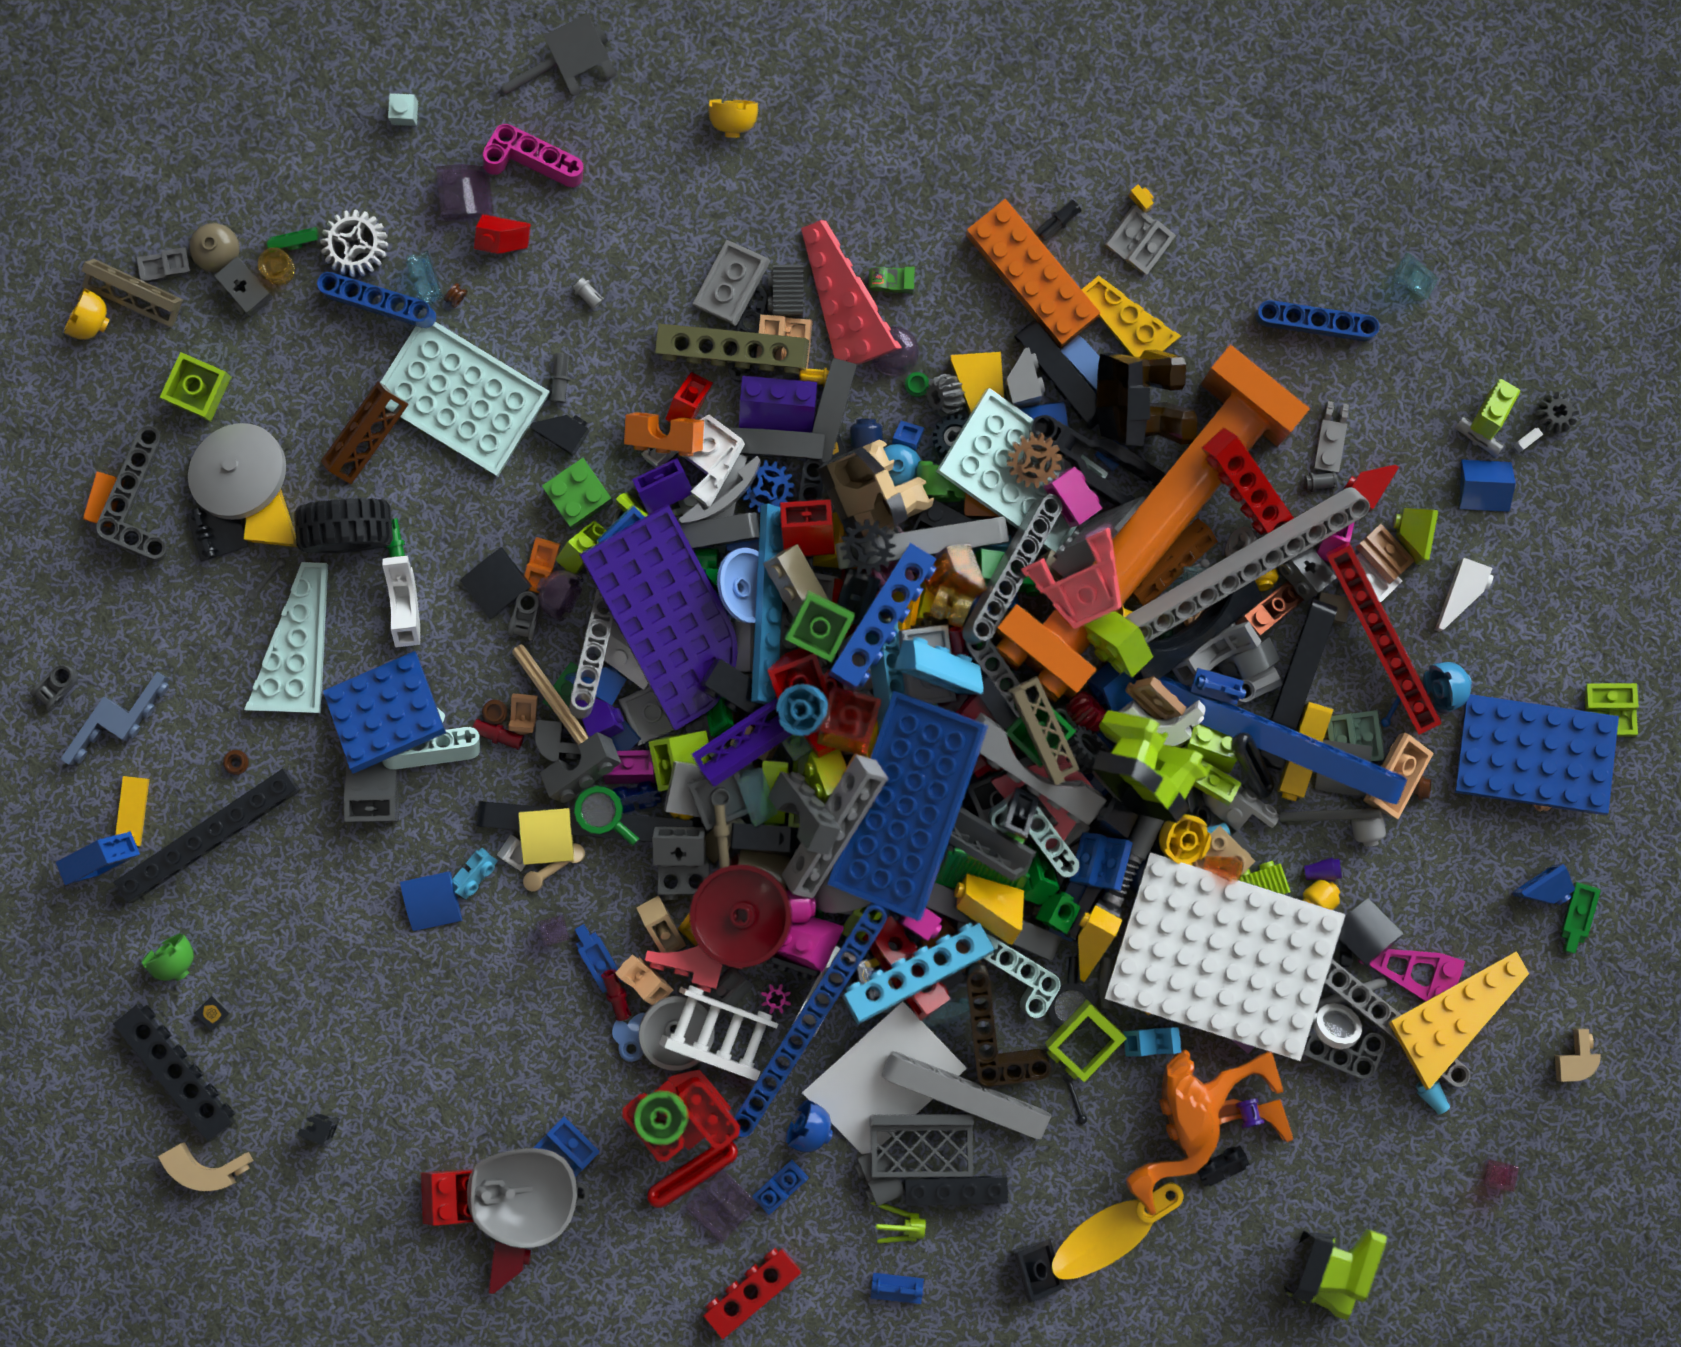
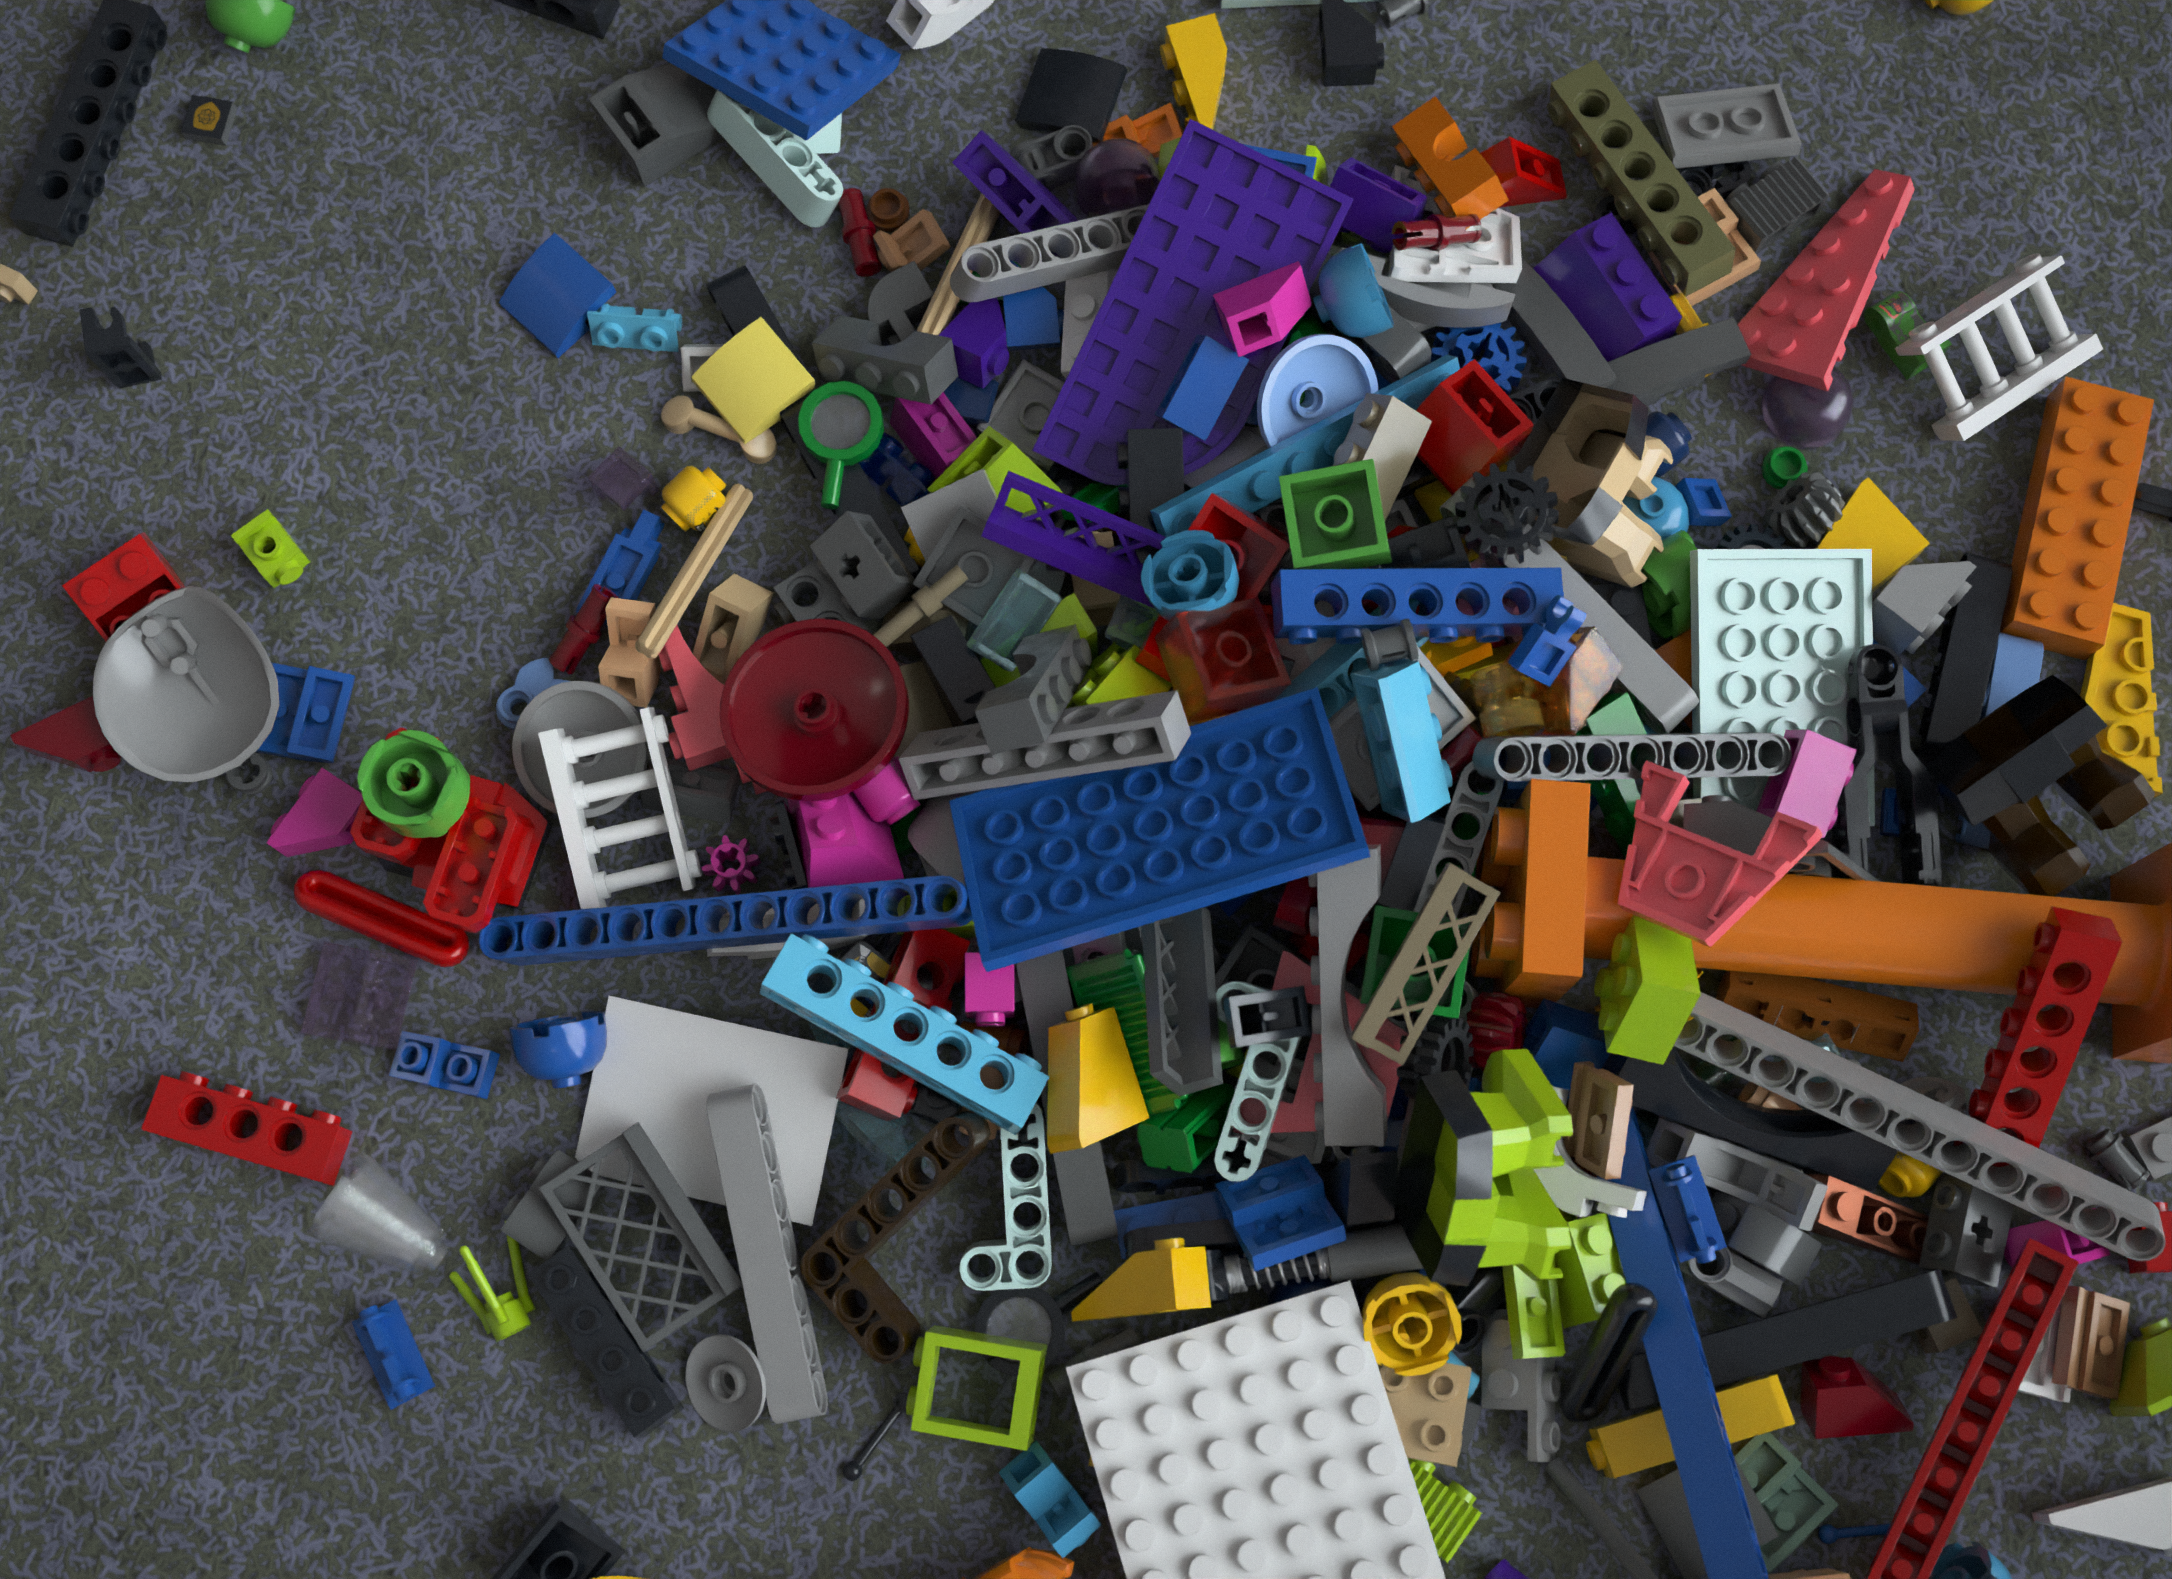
camera: 55 degrees right, 10 degrees down
(463, 1112) = (260, 537): none -> lime brick
(522, 509) = (1198, 60): none -> yellow slope
(539, 647) = (1010, 186): none -> dark purple slope
(577, 493) = (1277, 107): bright green brick -> none
(584, 901) = (693, 497): none -> yellow head
(625, 925) = (693, 572): none -> tan axle
(626, 1170) = (318, 818): none -> dark pink slope
(693, 584) = (1263, 308): none -> dark pink slope
(699, 468) = (1436, 232): none -> dark red pin
(705, 635) = (1201, 387): none -> blue hinge
(711, 534) = (1352, 295): none -> dark azure cylinder
(835, 1257) = (379, 1220): none -> clear cone
(896, 646) = (1389, 644): none -> dark grey bush
(943, 574) = (1548, 648): none -> blue plate
(953, 247) = (2031, 371): none -> white fence
(1009, 1157) = (725, 1383): none -> light grey dish
(1025, 464) = (1808, 704): medium nougat gear -> none
(1049, 912) = (1139, 1185): green brick -> none
(1225, 867) = (1412, 1420): clear orange cone -> none
(1339, 673) = (1848, 1400): none -> dark red slope

